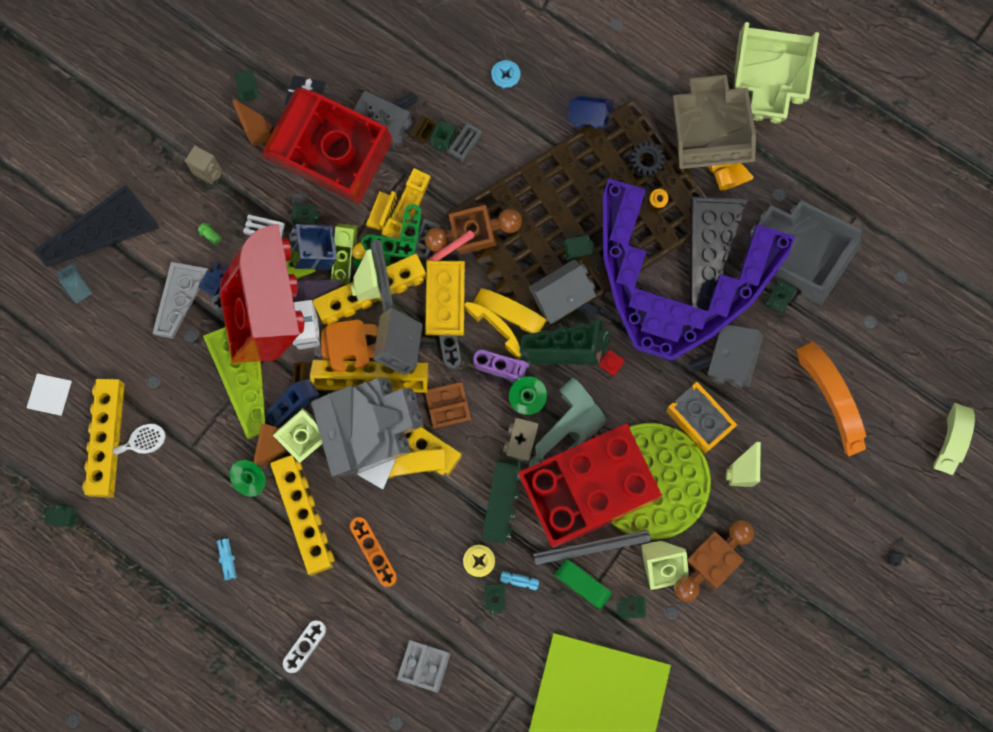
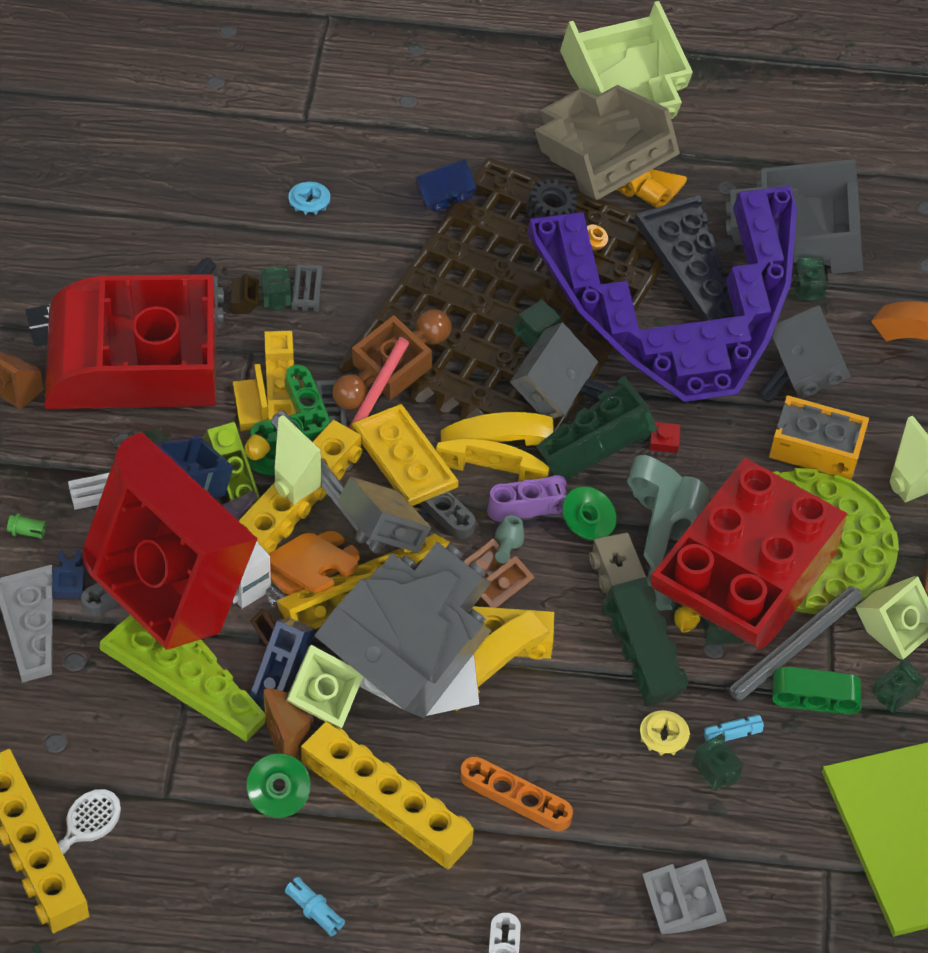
camera: 35 degrees left, 25 degrees down
(470, 387) = (509, 536): none -> sand green bar

